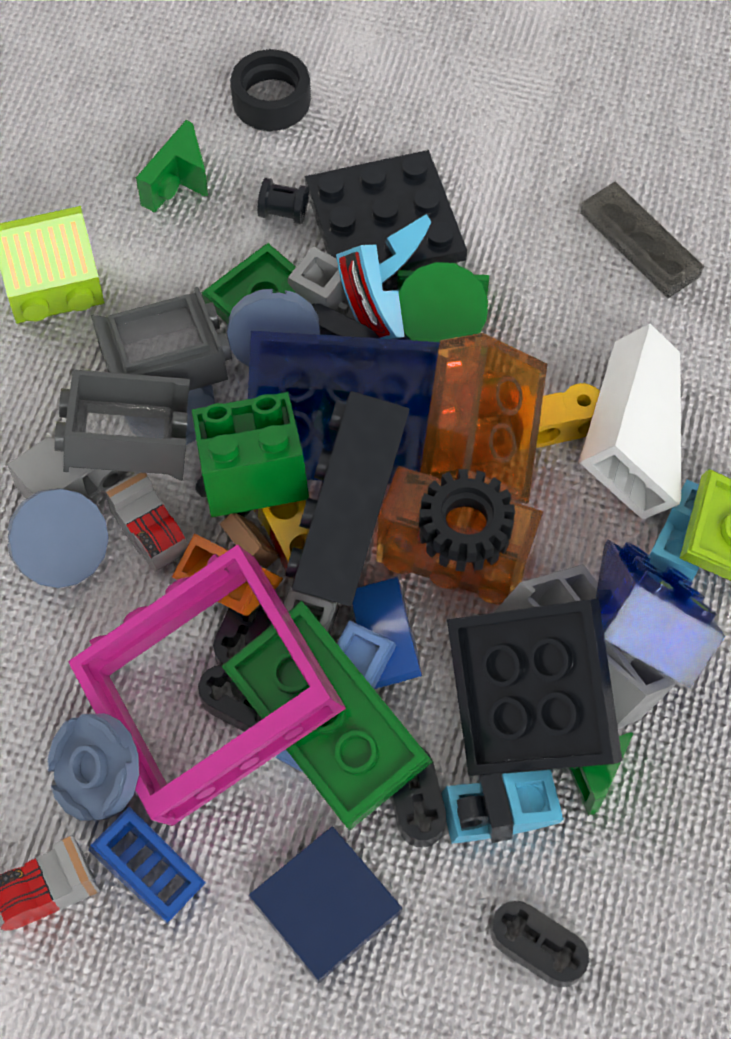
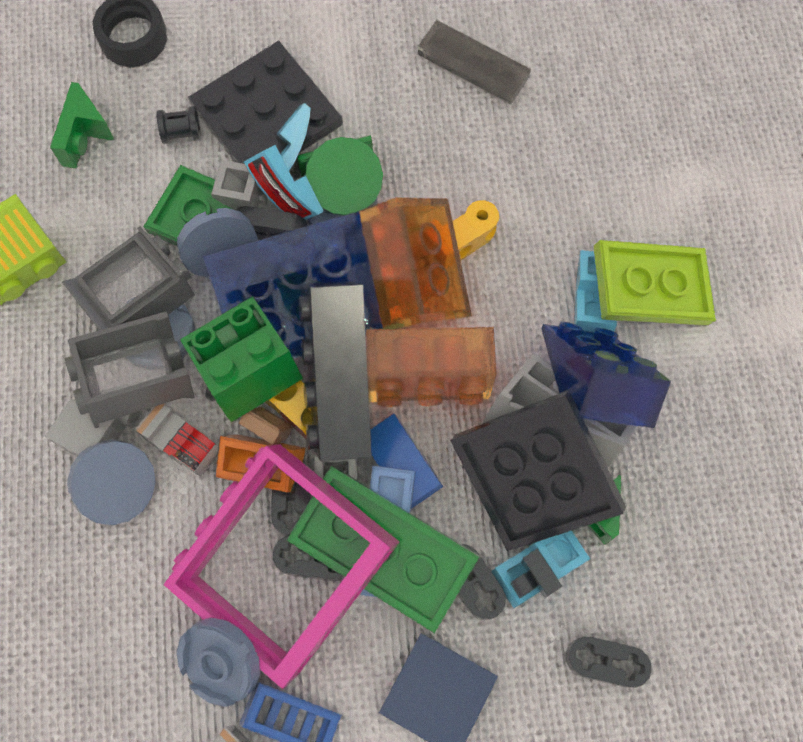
camera: 20 degrees left, 10 degrees up
(472, 494) = (439, 334): black tyre -> none
(637, 424) = (529, 219): white slope -> none

